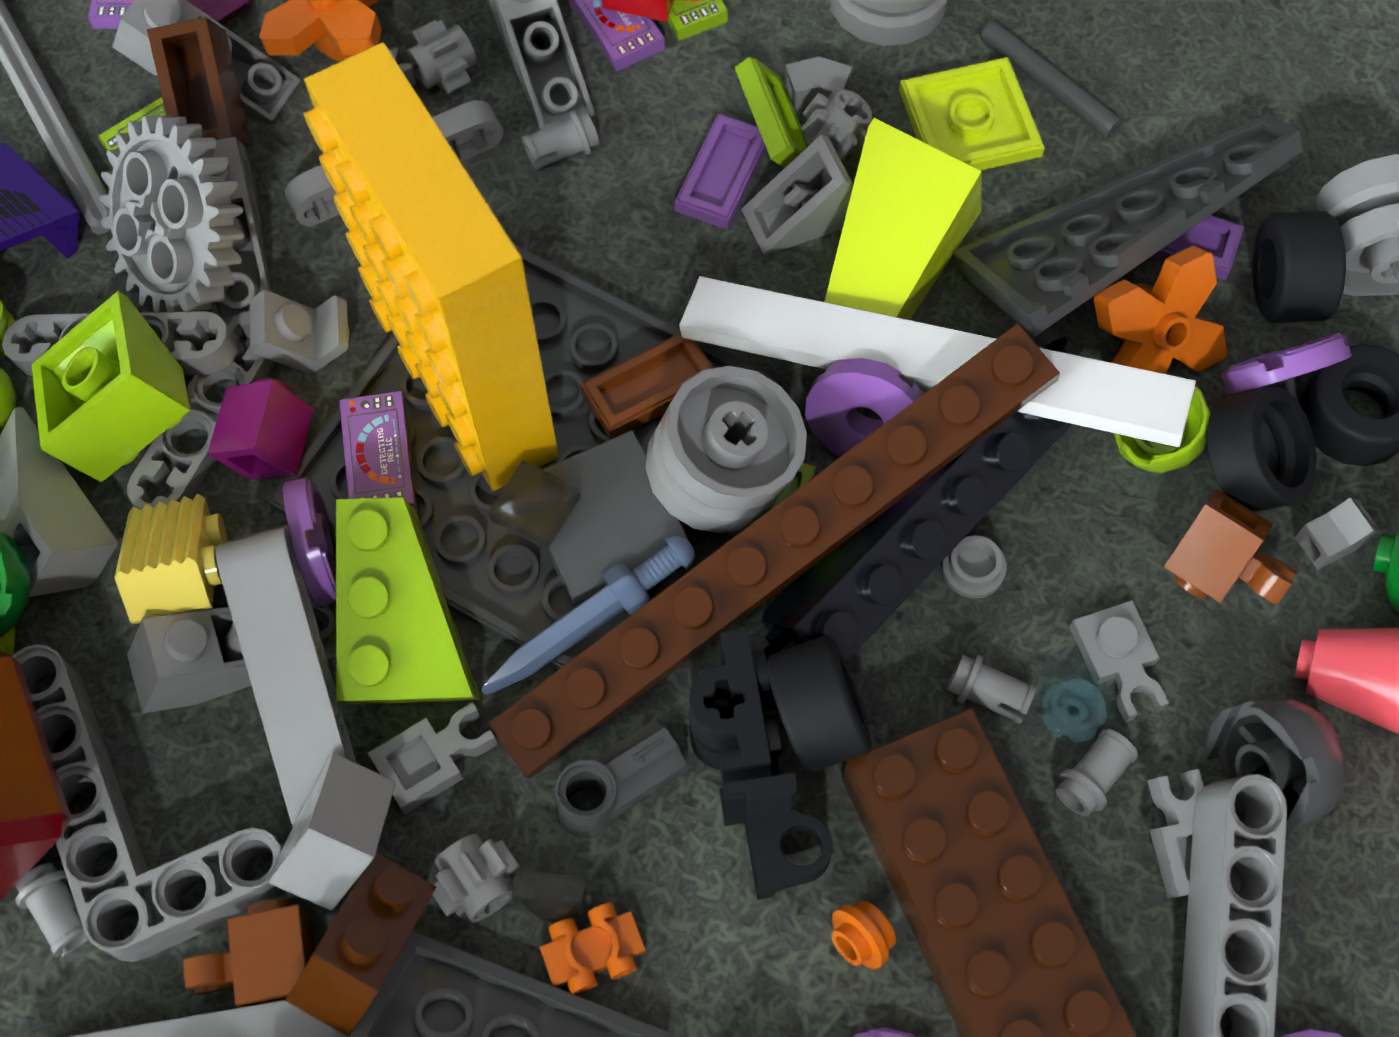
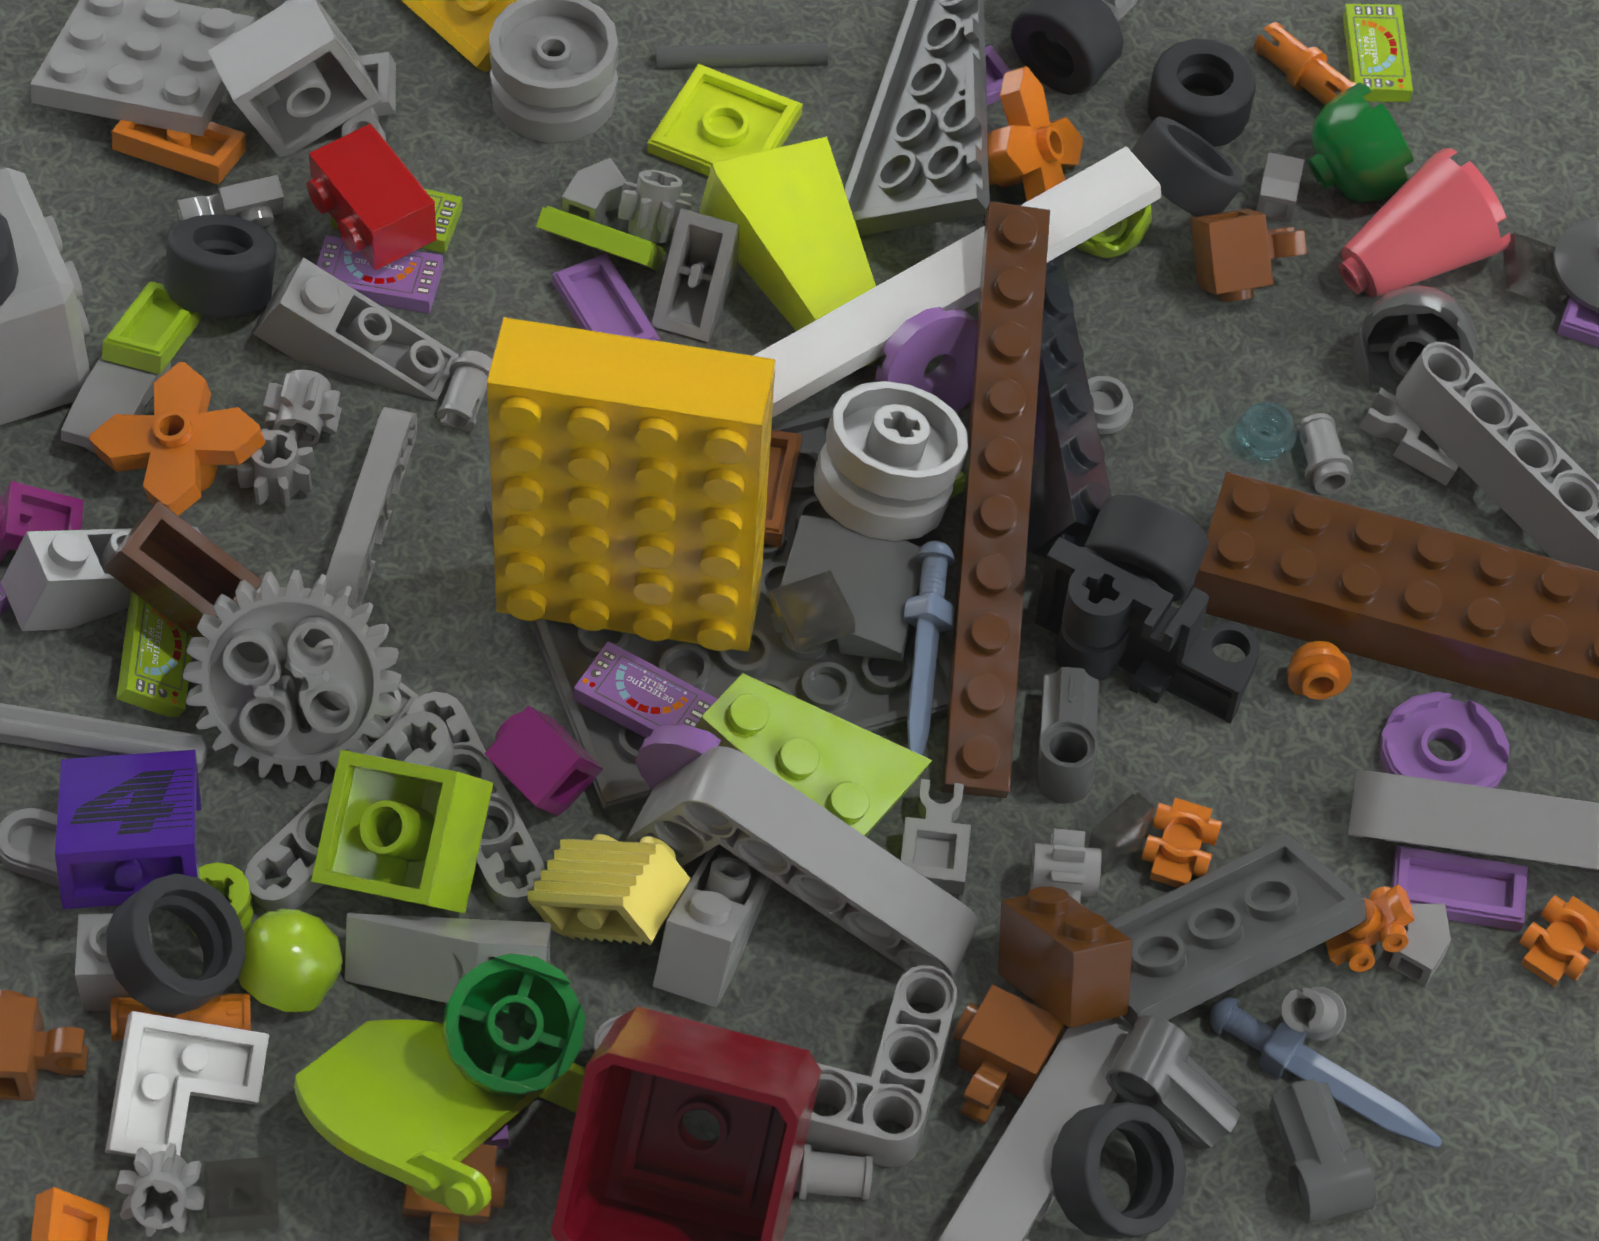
camera: 55 degrees left, 10 degrees down
(297, 333) = (478, 676): light grey bracket -> none
(334, 833) = (967, 917): light grey slope -> none
(990, 688) = (1194, 469): light grey pin -> none
(1119, 649) = (1246, 374): light grey plate -> none
(1286, 363) = (1142, 99): medium lavender tile -> none

